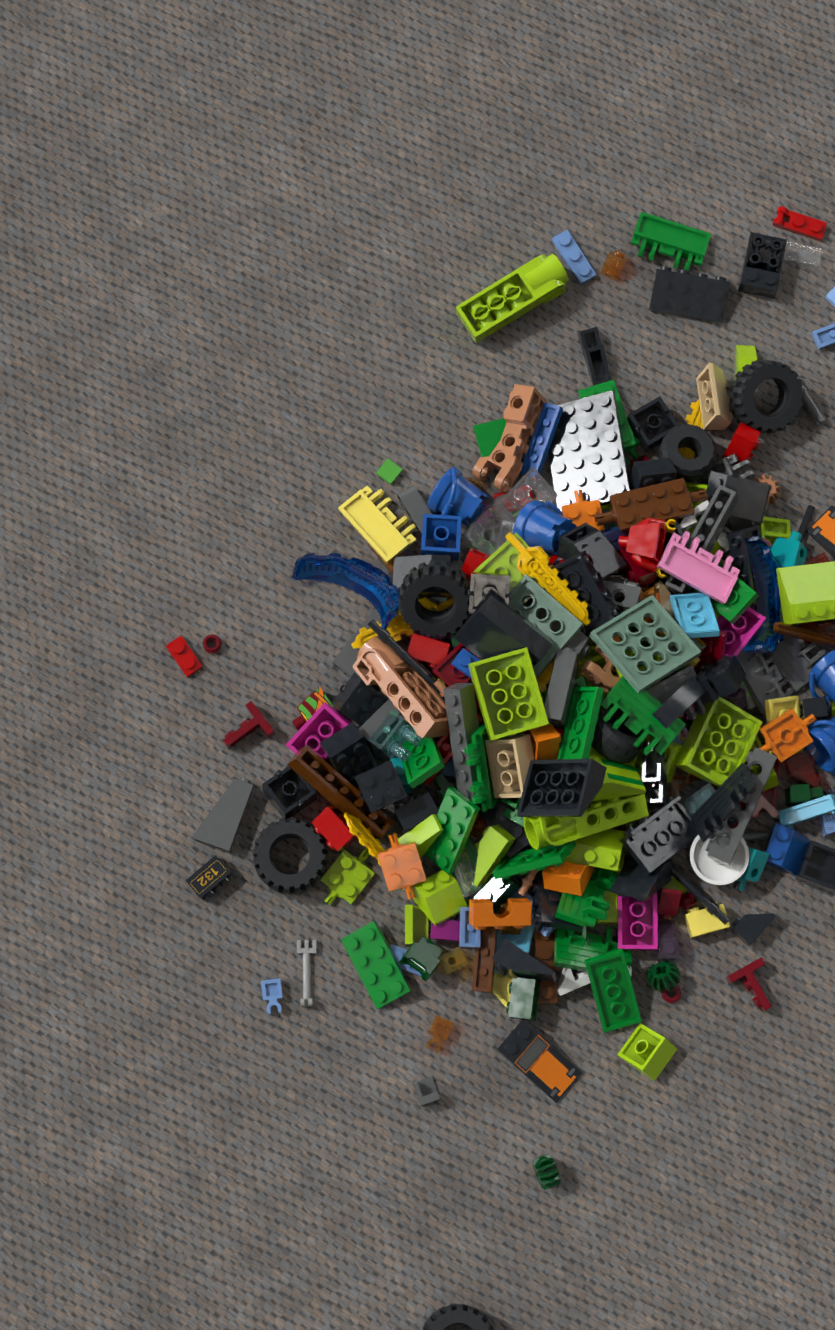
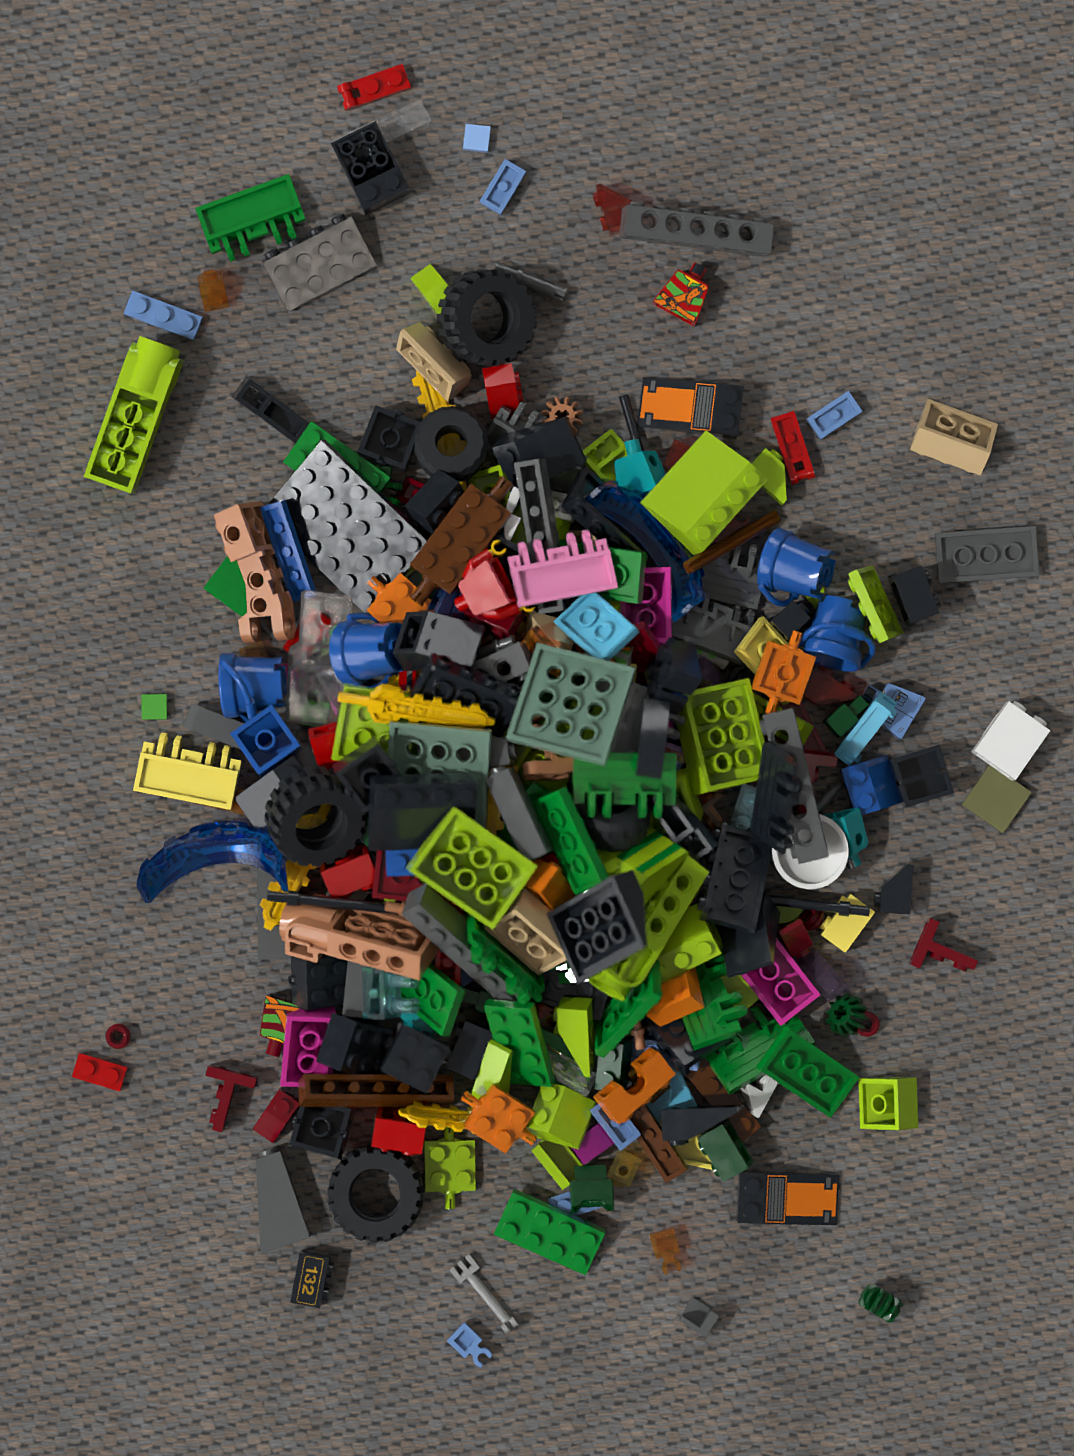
camera: 35 degrees left, 10 degrees up
(267, 763) = (276, 1115): none -> dark red slope

